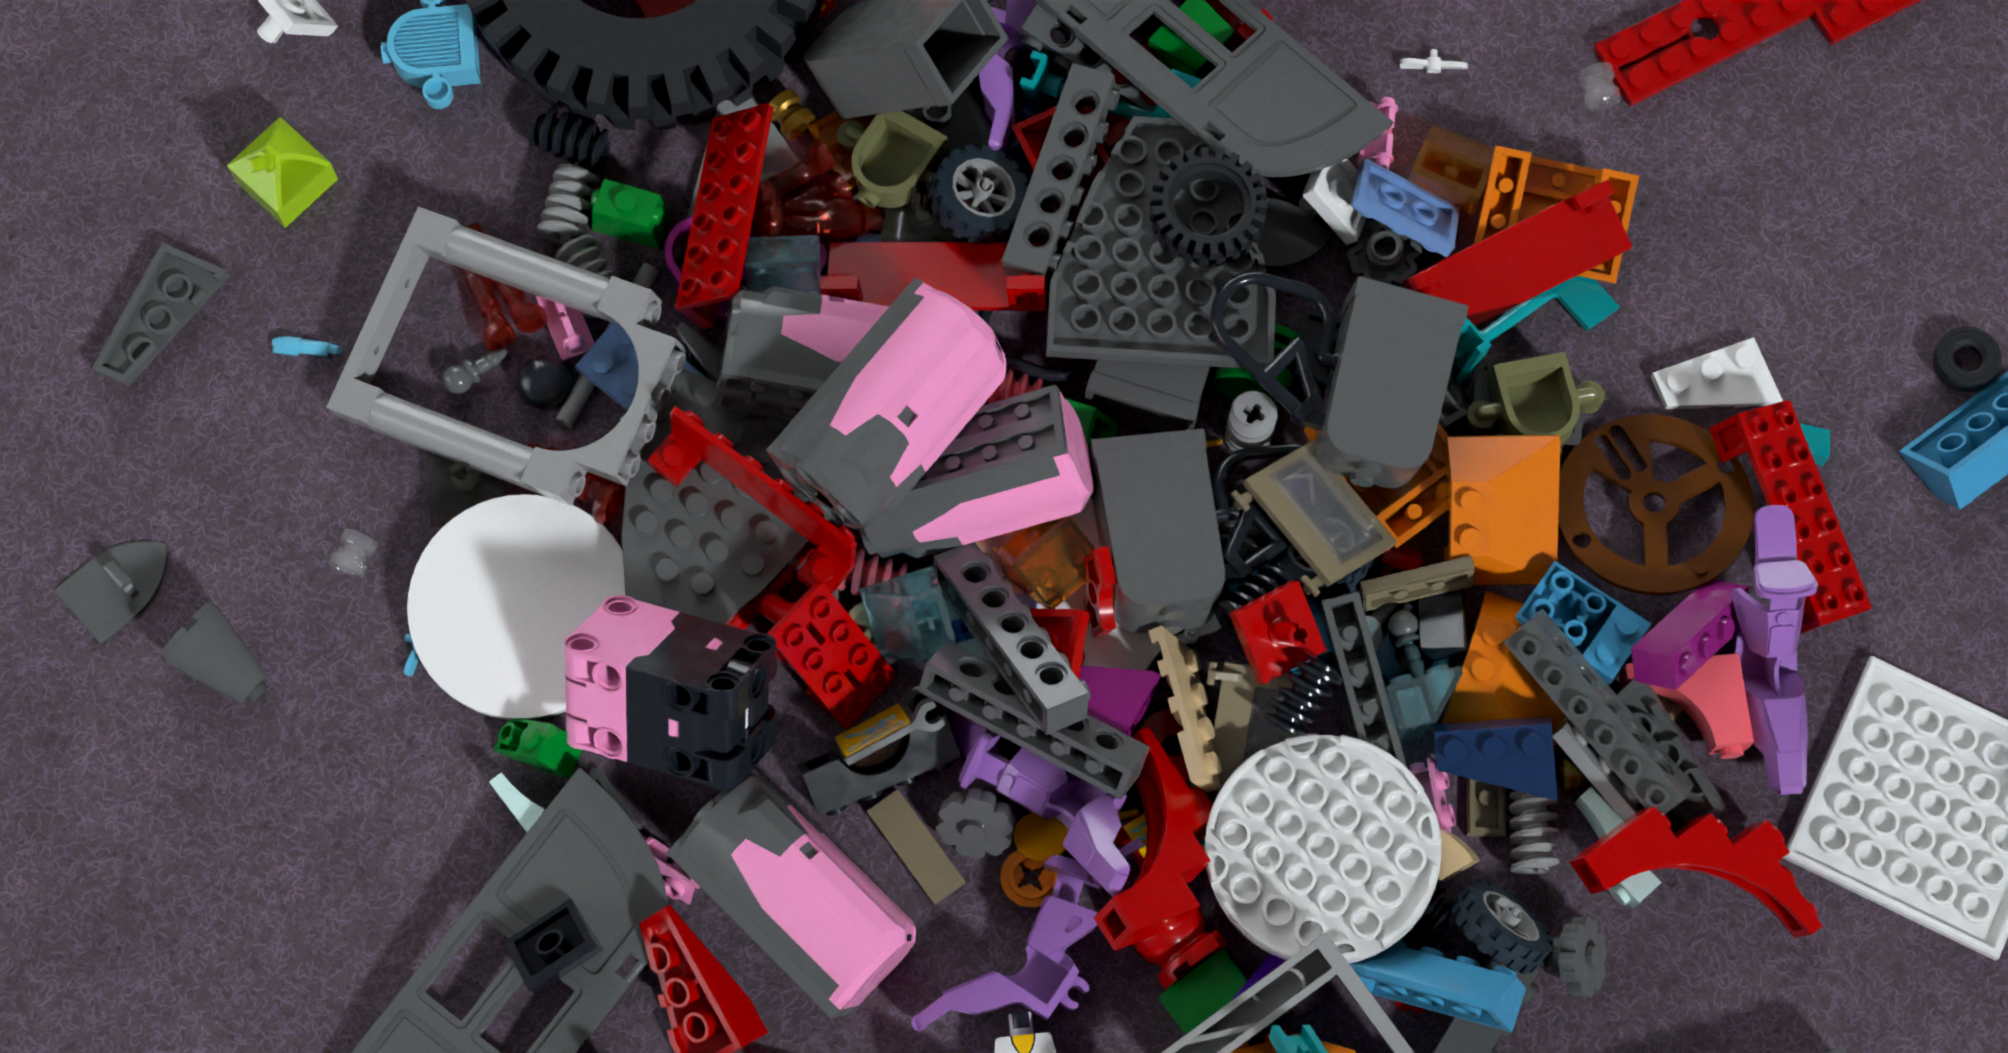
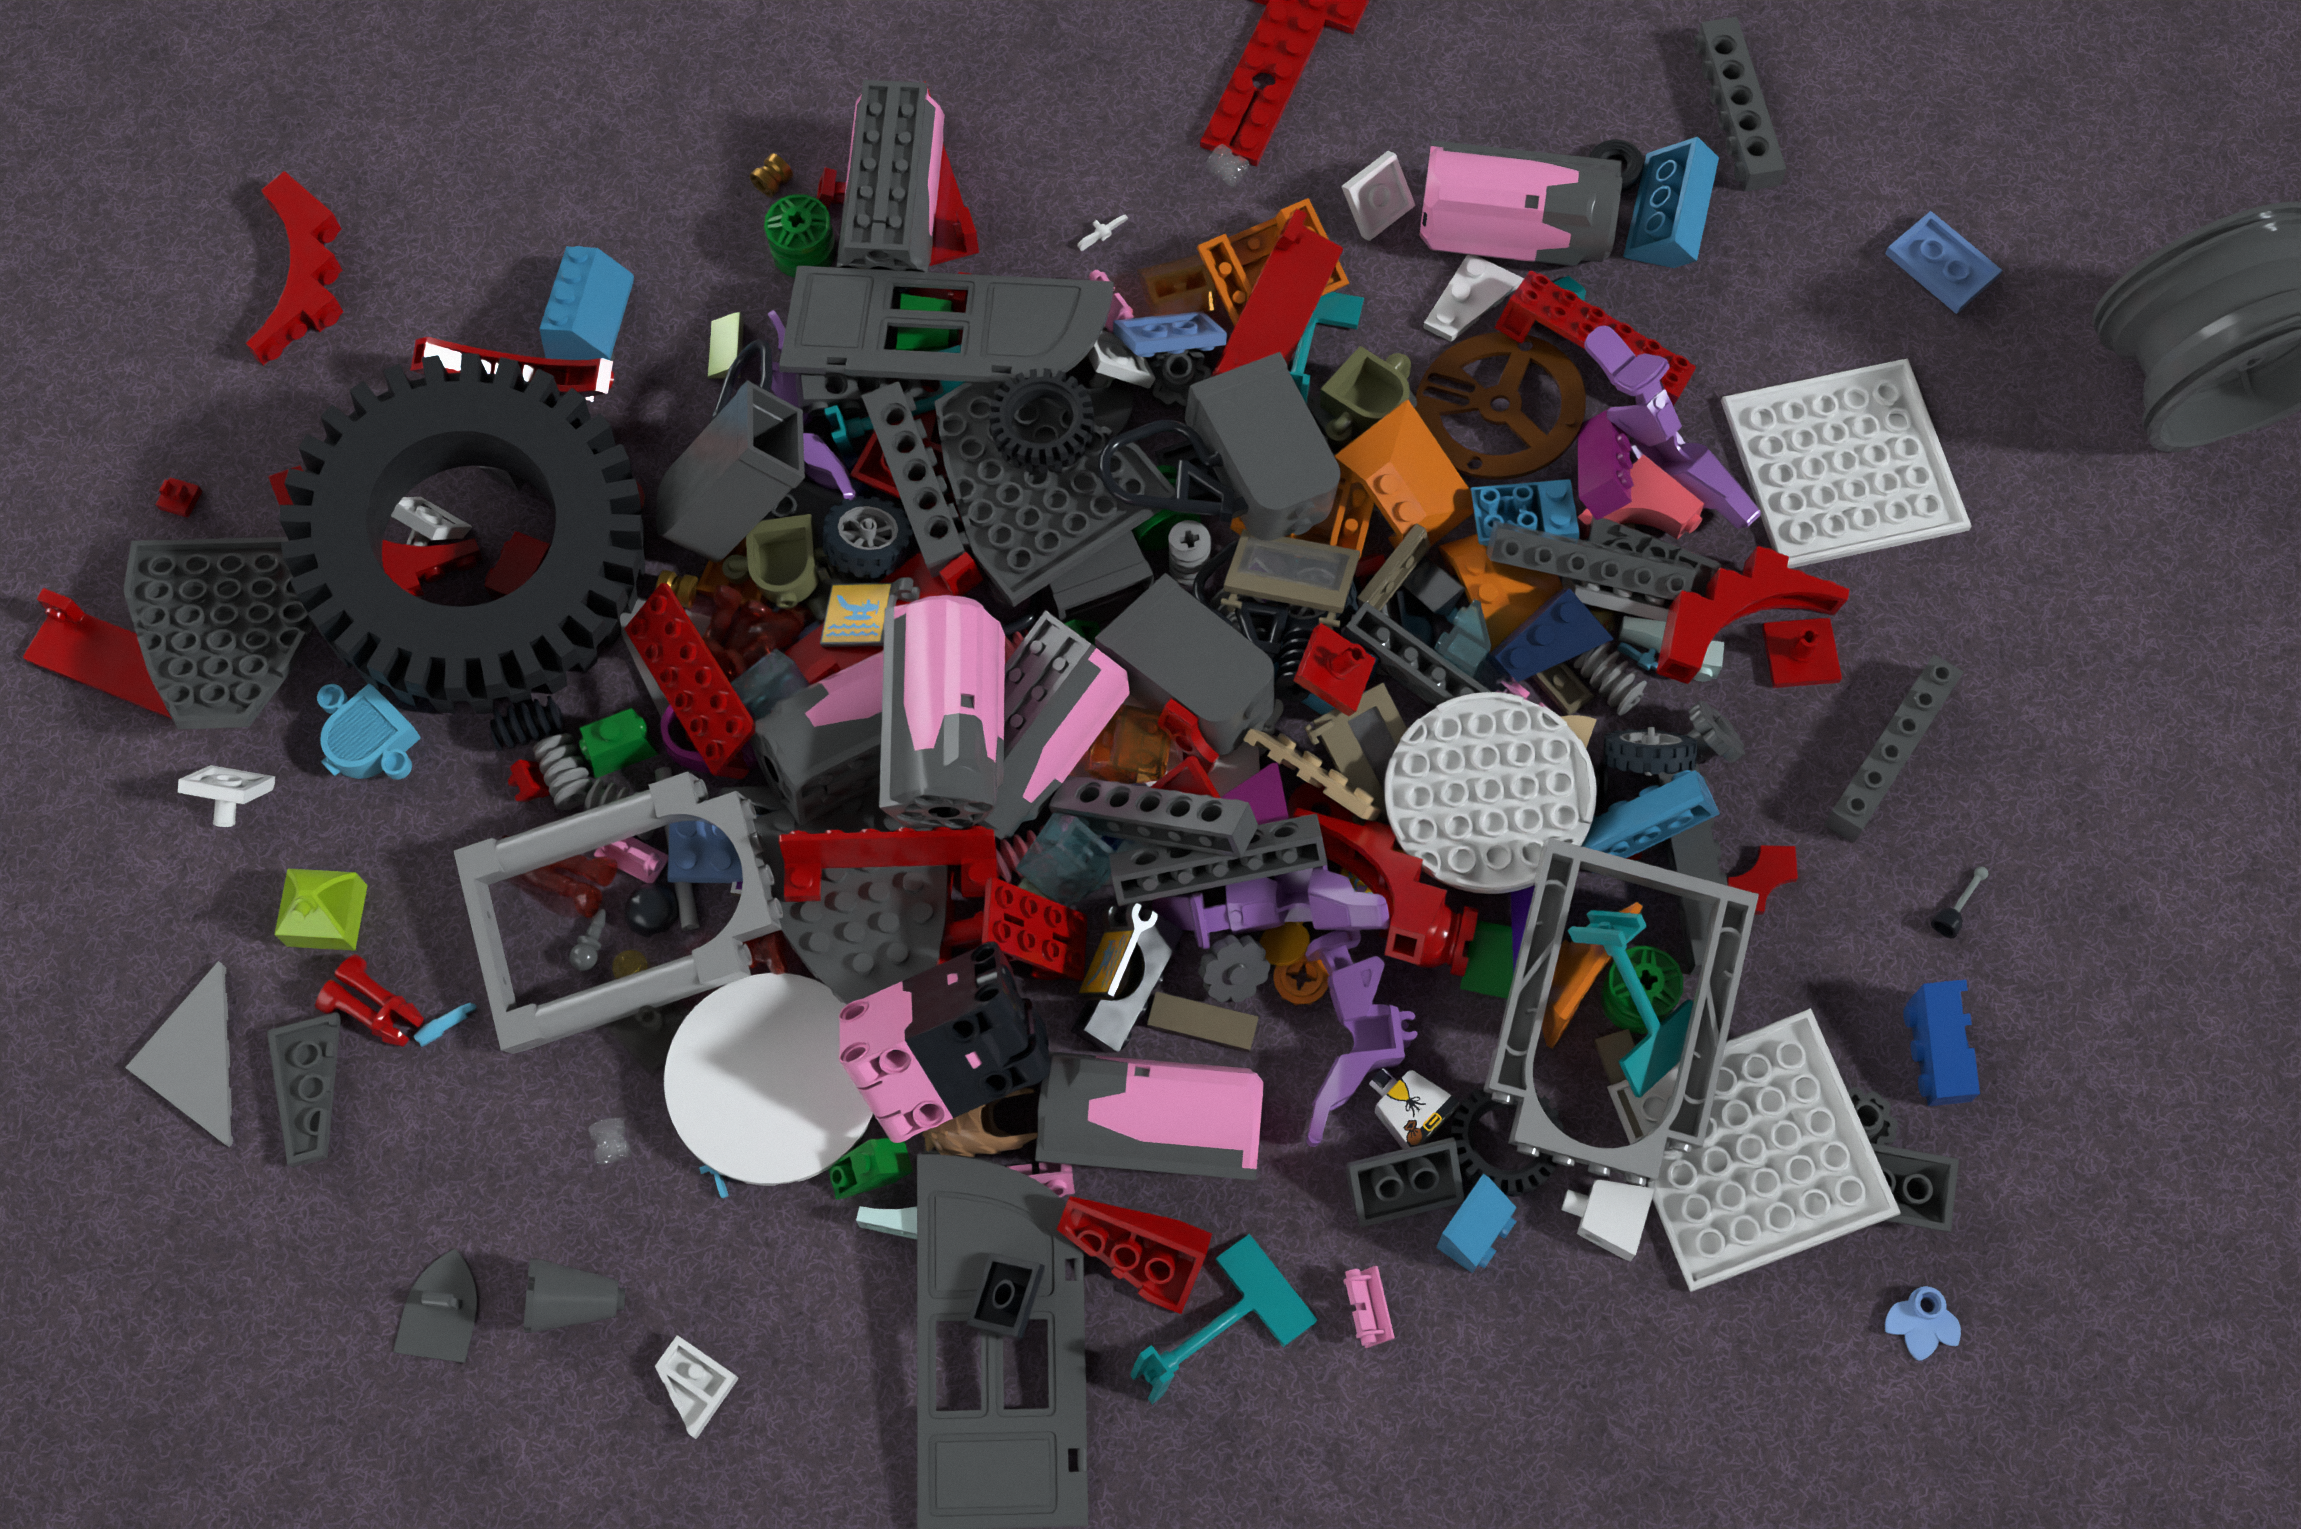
camera: 35 degrees left, 5 degrees down
(89, 216) = (191, 1058): none -> light grey tile
(236, 257) = (353, 973): none -> red piece
(260, 809) = (694, 1383): none -> white wing
(488, 416) = (628, 963): none -> clear yellow plate
(533, 189) = (529, 779): none -> red tile
(644, 791) = (976, 1133): none -> medium nougat head
(922, 253) = (858, 612): none -> flag
(1303, 695) = (1387, 699): black piece -> none
(1403, 627) = (1409, 609): dark grey bar -> none
(1580, 841) = (1644, 660): none -> medium azure piece
(1711, 221) = (1378, 195): none -> white tile
(1731, 947) = (1801, 652): none -> red tile
(1833, 328) = (1520, 204): none -> bright pink piece

